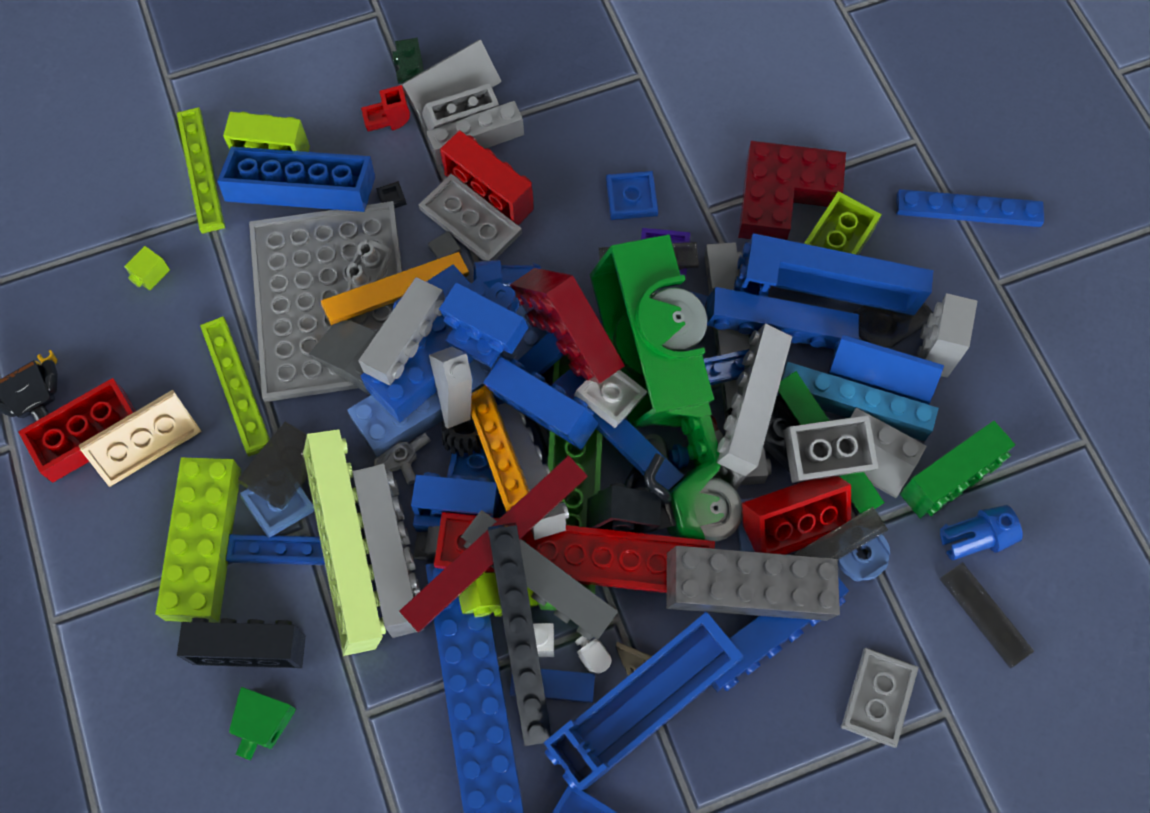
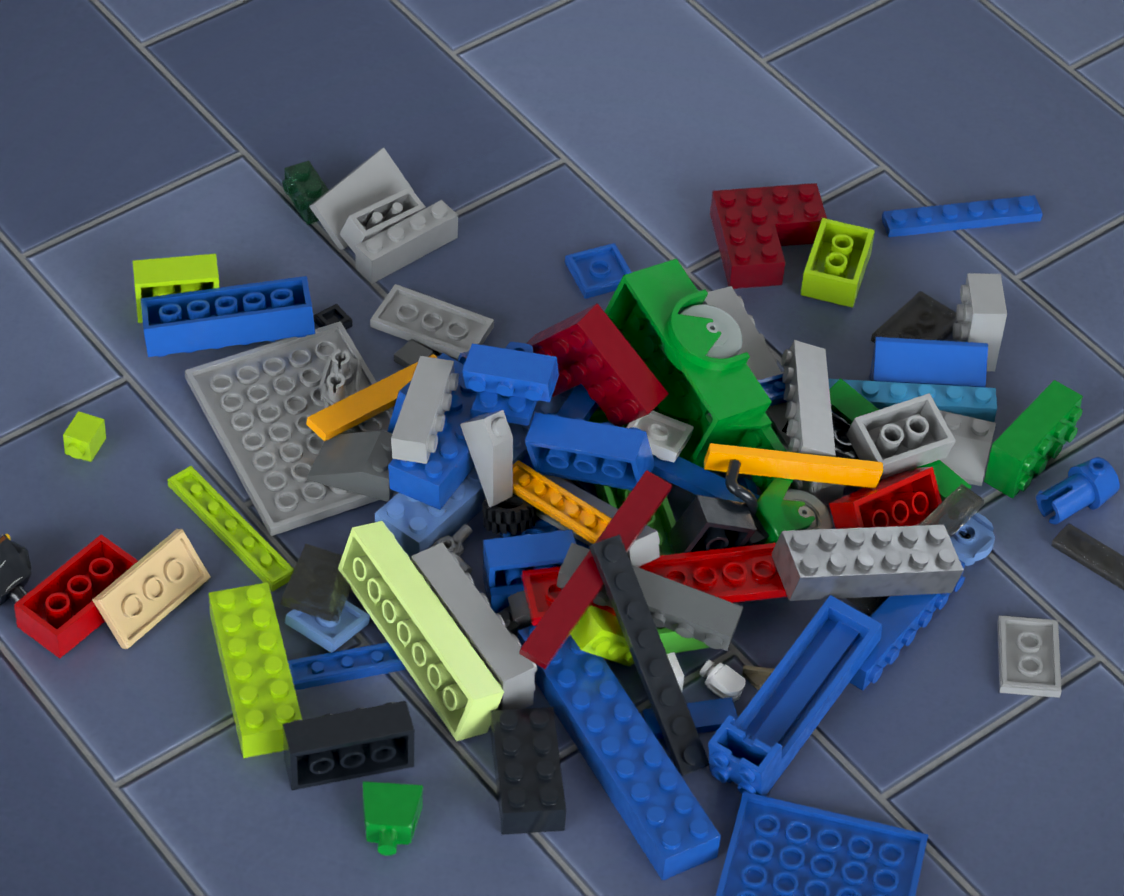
camera: 20 degrees left, 20 degrees down
(200, 170) = (102, 336): lime tile -> none
(389, 707) = (527, 770): none -> black brick
(390, 112) = (306, 238): red brick -> none
(488, 176) = (441, 274): red brick -> none
(716, 466) = (795, 465): none -> light orange tile
(804, 322) = (844, 342): blue brick -> none
(831, 275) = (842, 291): blue brick -> none

